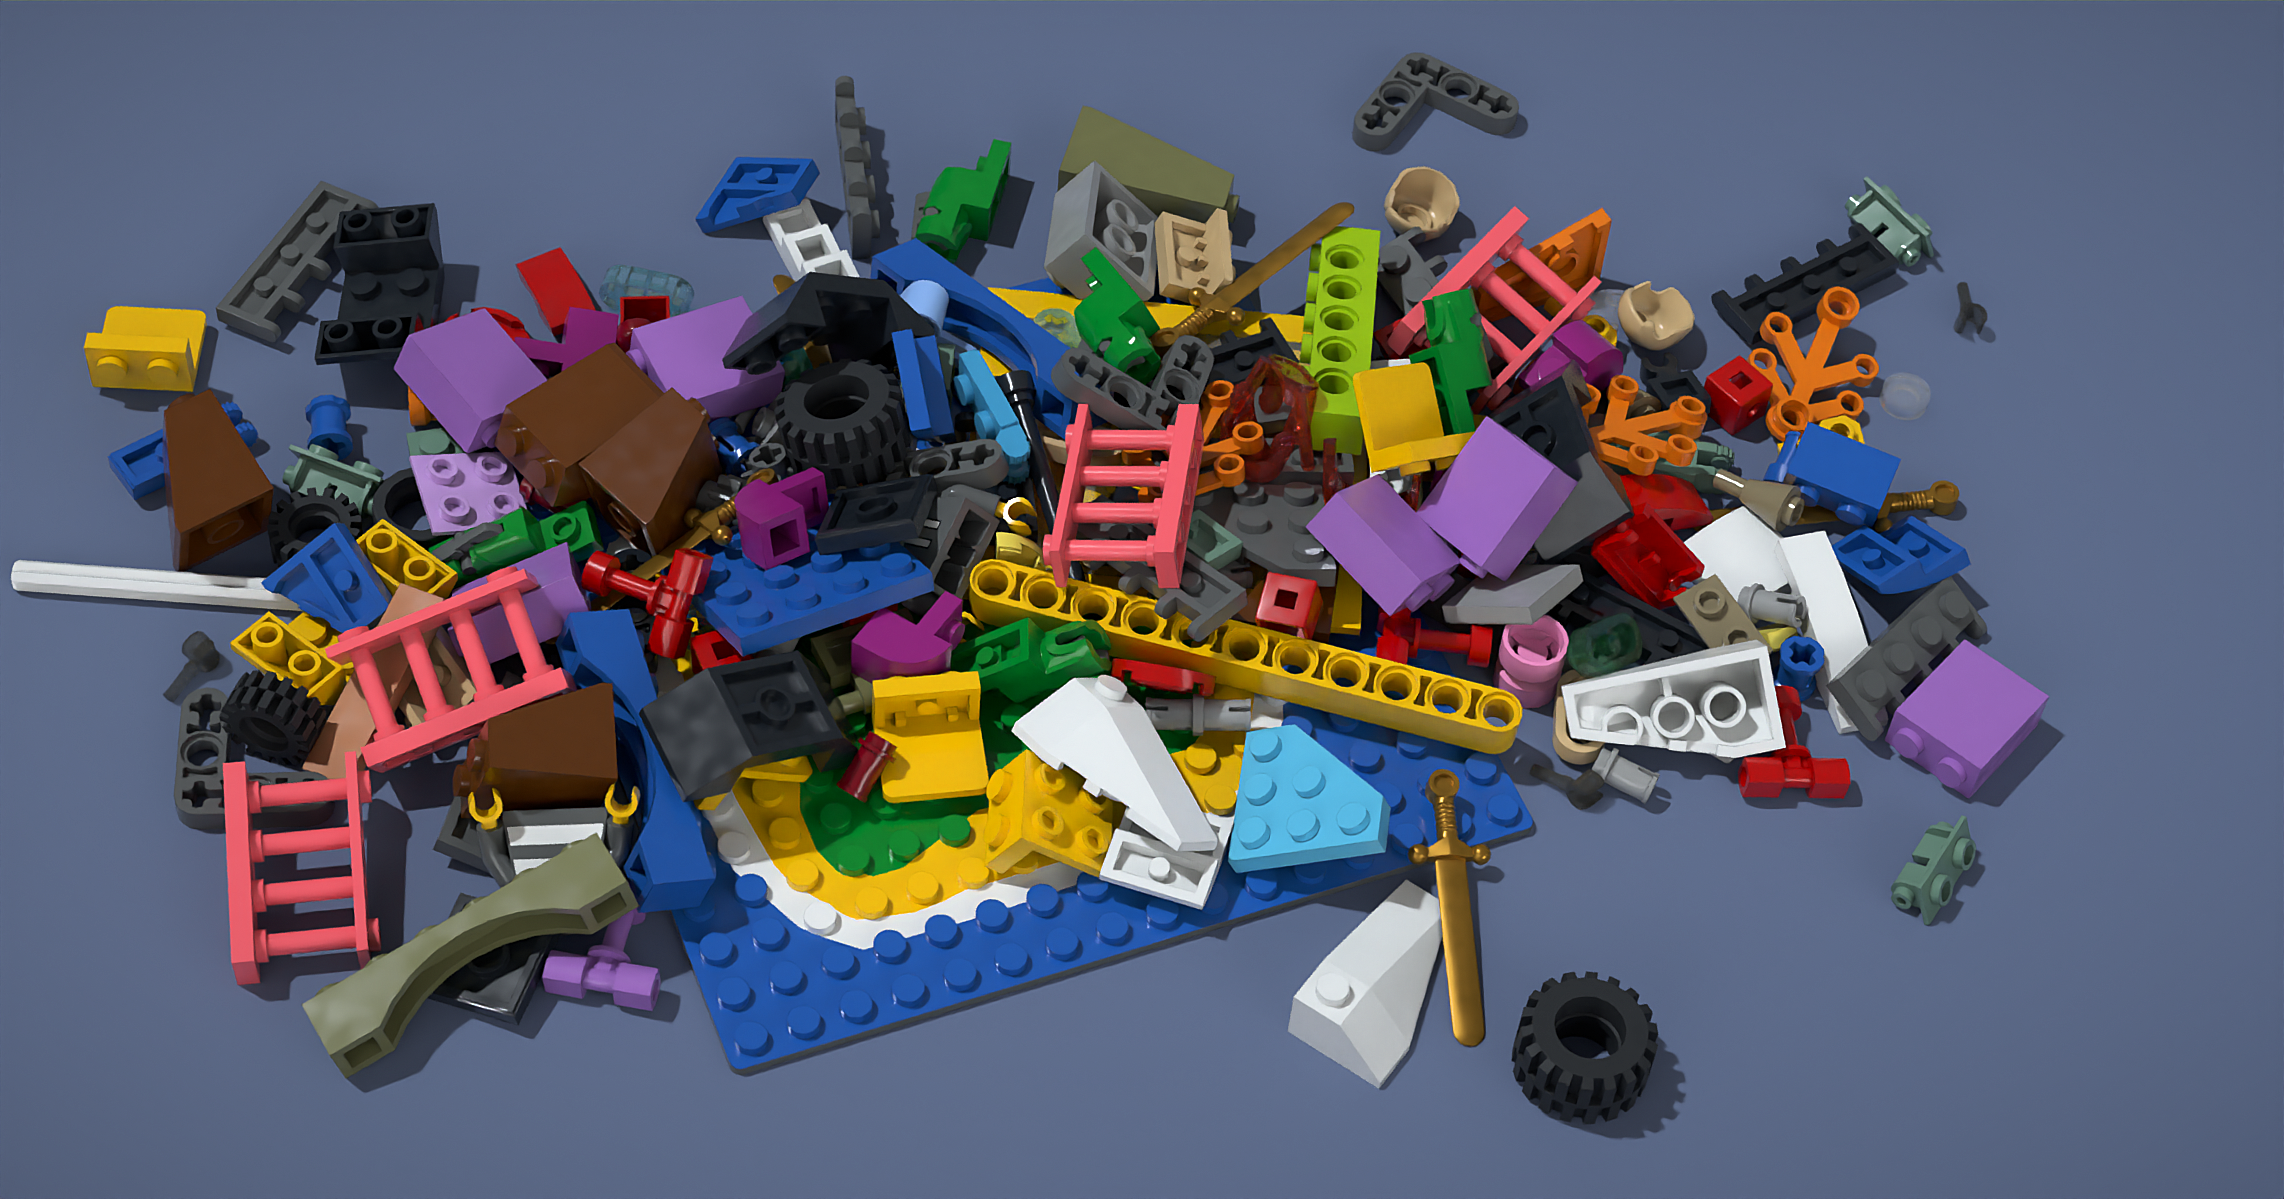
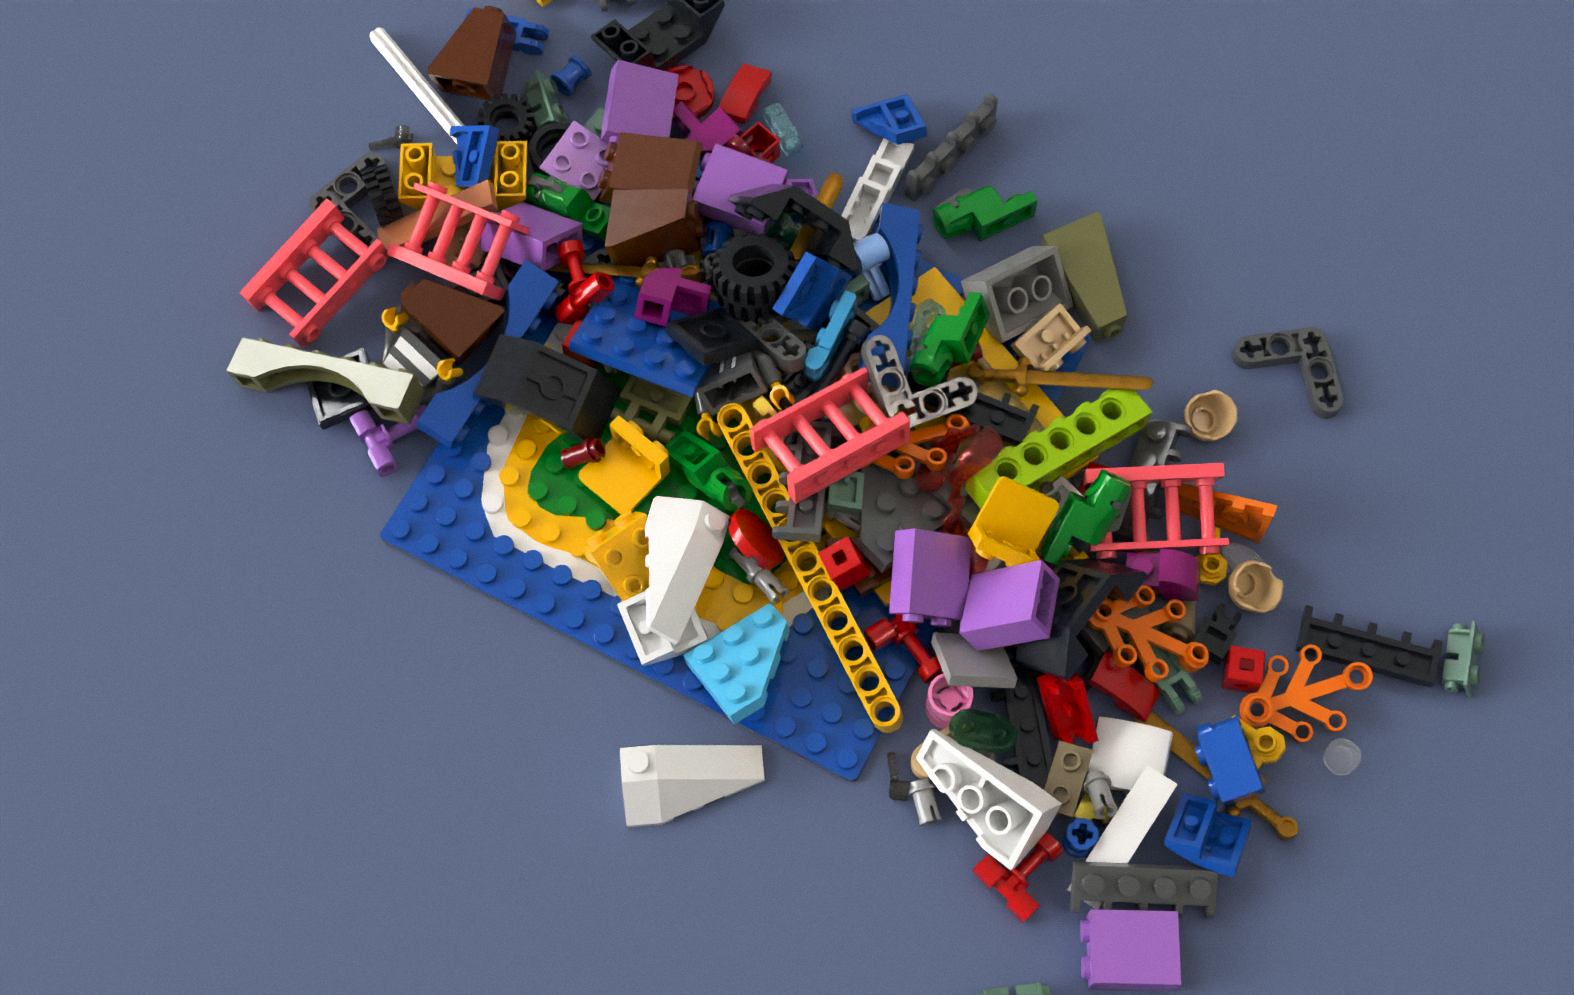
camera: 55 degrees right, 15 degrees up
(898, 647) = (657, 419): magenta brick -> none
(1455, 906) = (760, 782): pearl gold sword -> none
(1590, 1011) = (721, 878): black tyre -> none
(1771, 501) = (1177, 743): dark tan cone -> none
(1969, 311) = (1446, 743): clear smoke hand -> none

